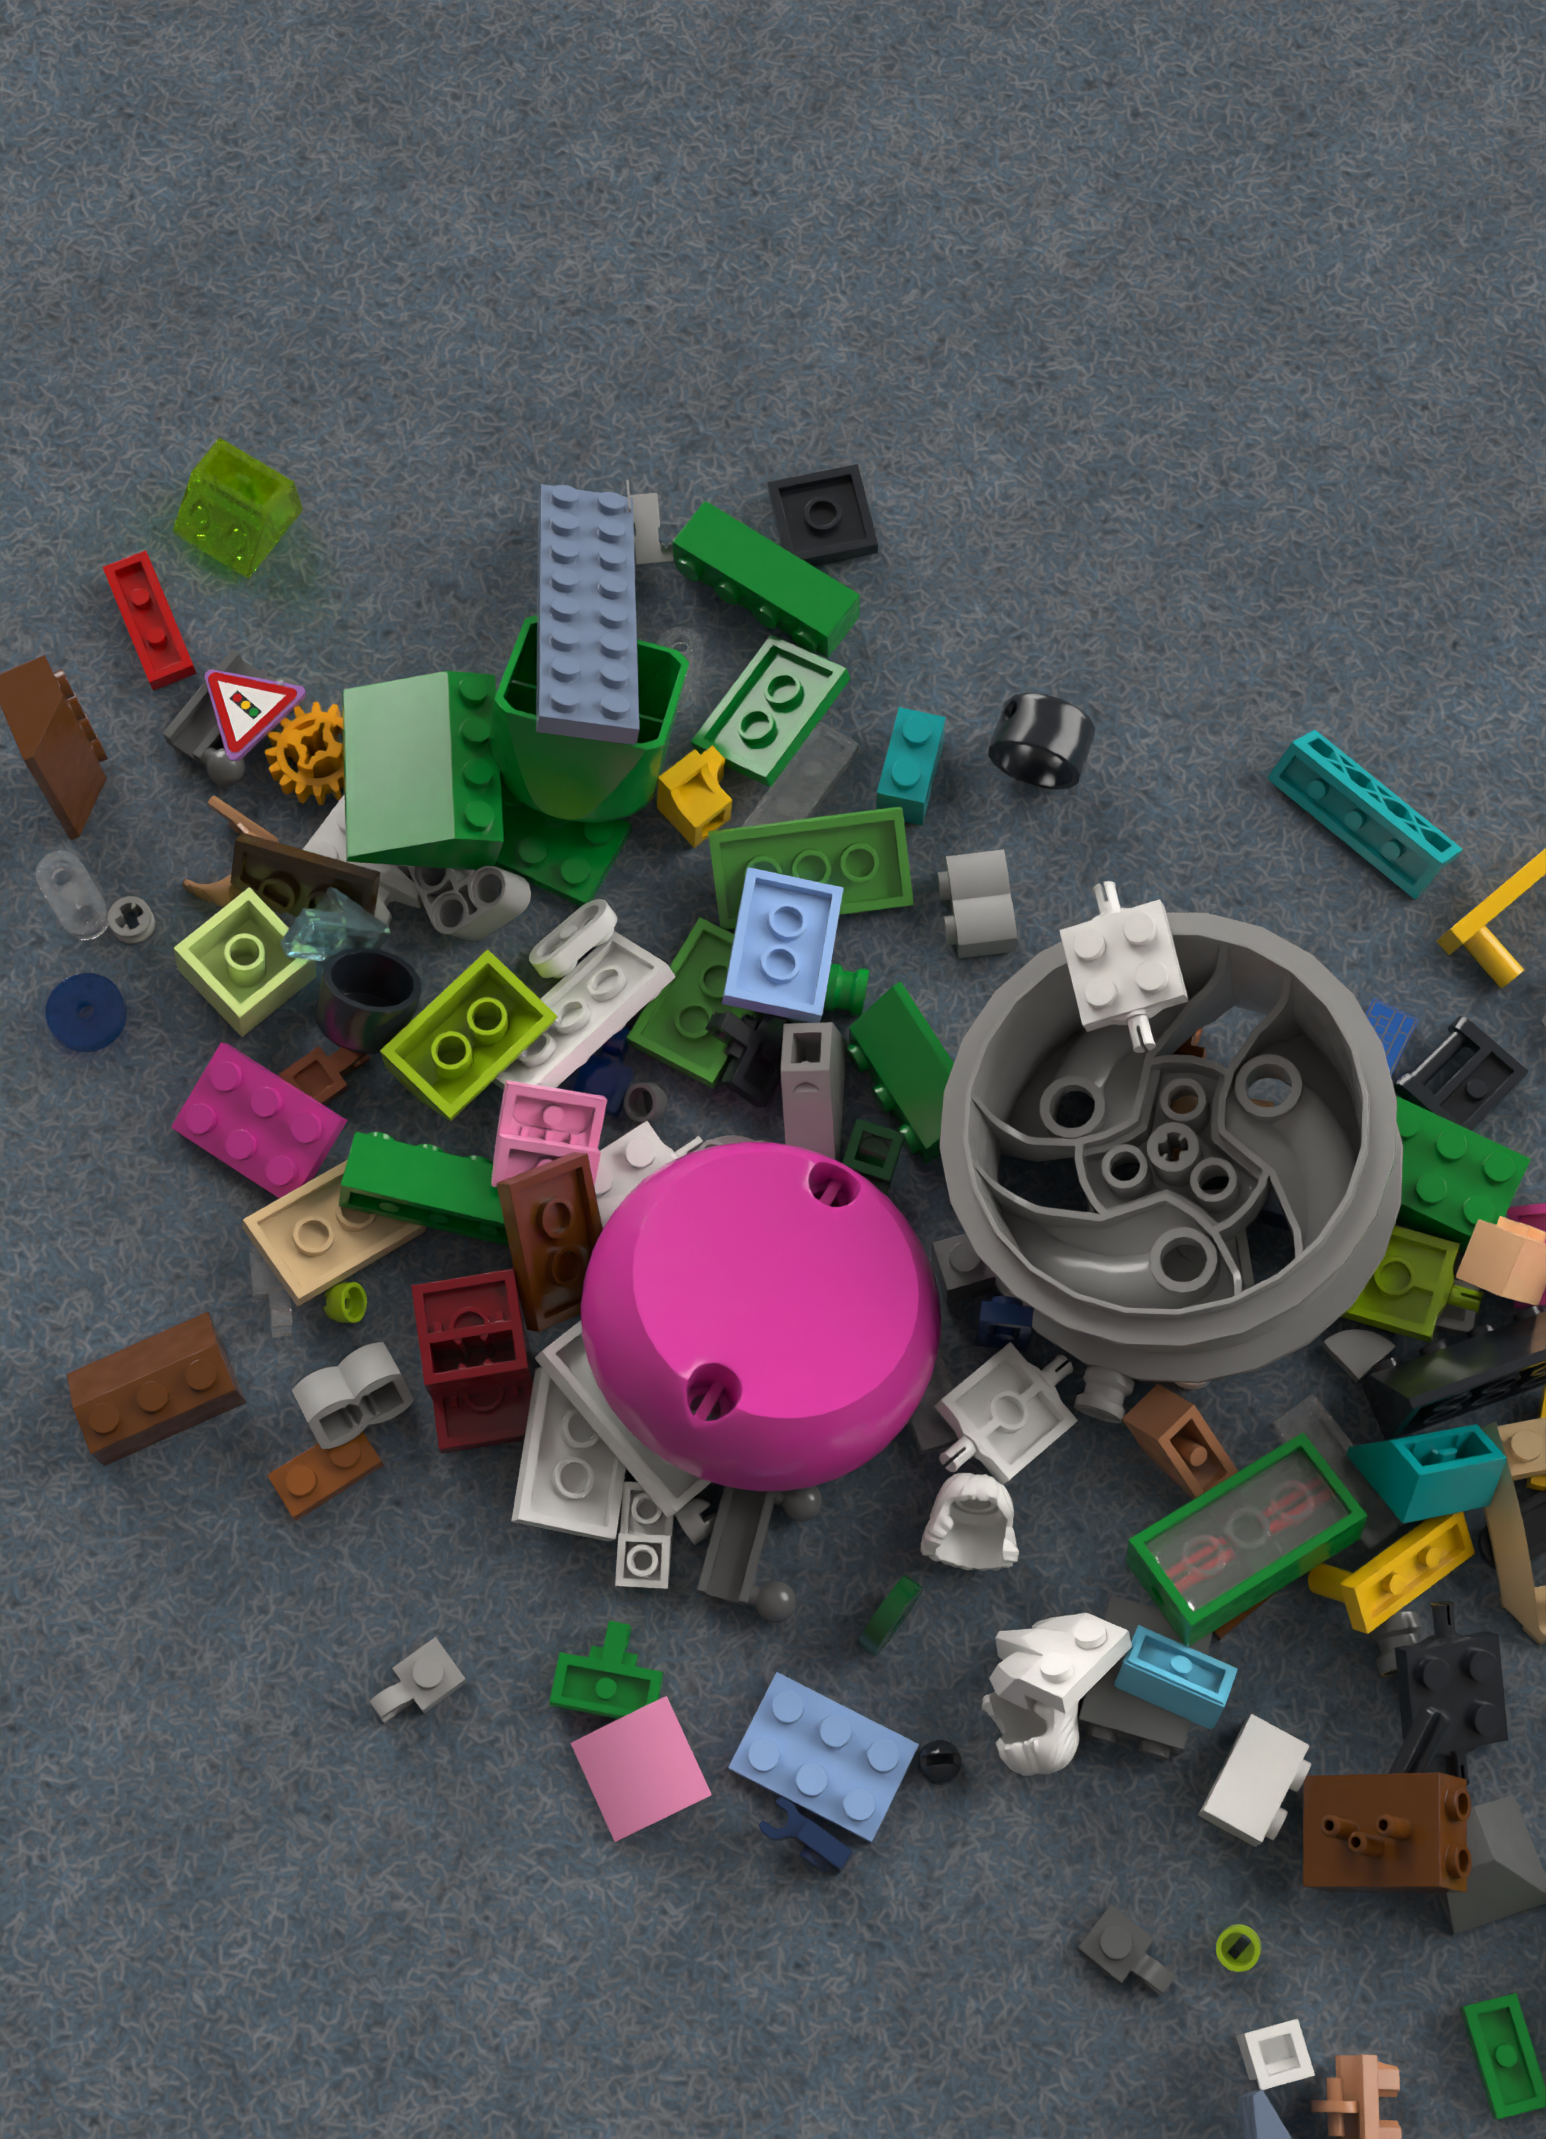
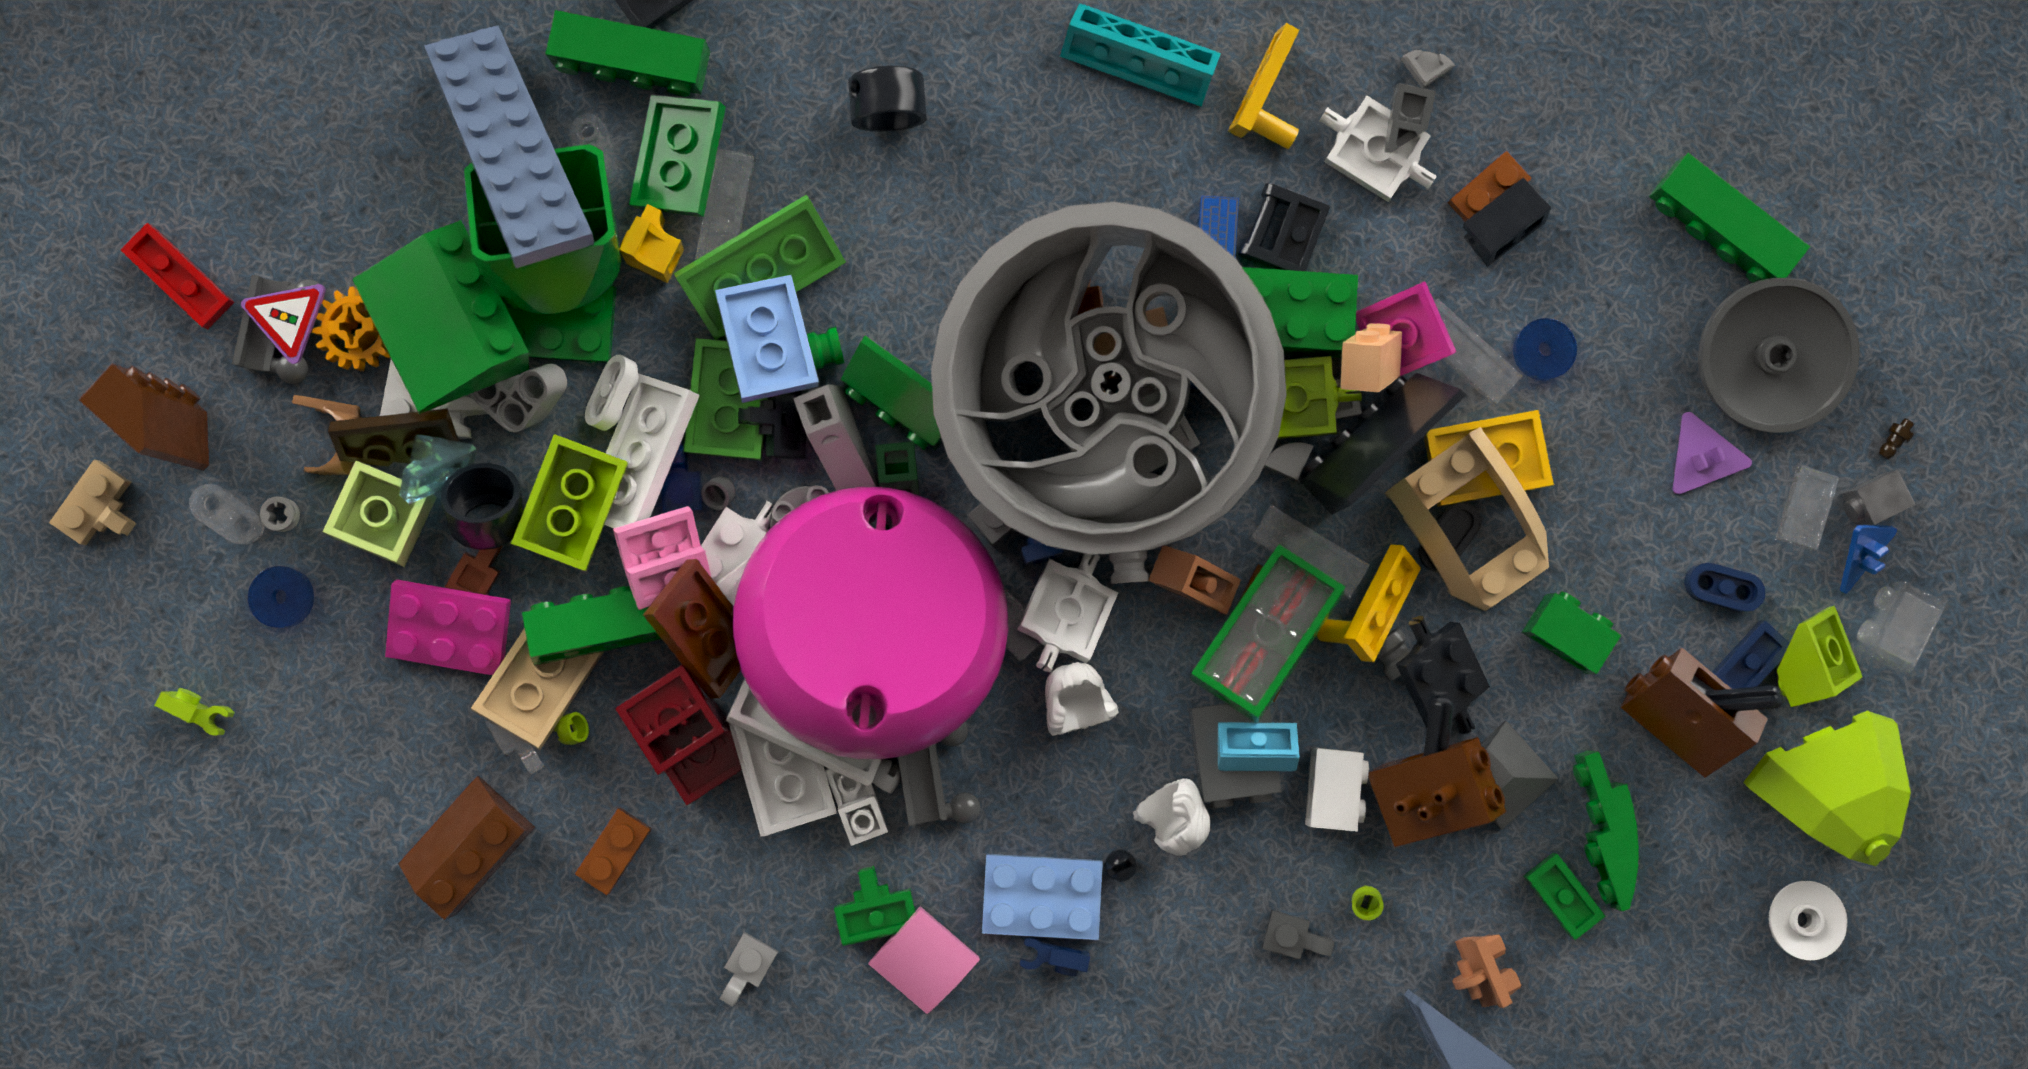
camera: 30 degrees left, 15 degrees up
(236, 508) = (199, 160): clear neon green slope -> none
(352, 1395) = (608, 795): light grey brick -> none
(646, 523) = (518, 40): light grey piece -> none
(889, 1616) = (1048, 786): dark green piece -> none
(911, 763) = (799, 156): teal brick -> none
(979, 903) = (893, 241): light grey brick -> none
(1056, 1660) = (1174, 771): white plate -> none
(1123, 966) = (1027, 274): white plate -> none
(1276, 2054) = (1419, 964): white brick -> none
(1432, 1471) = (1372, 530): teal slope -> none

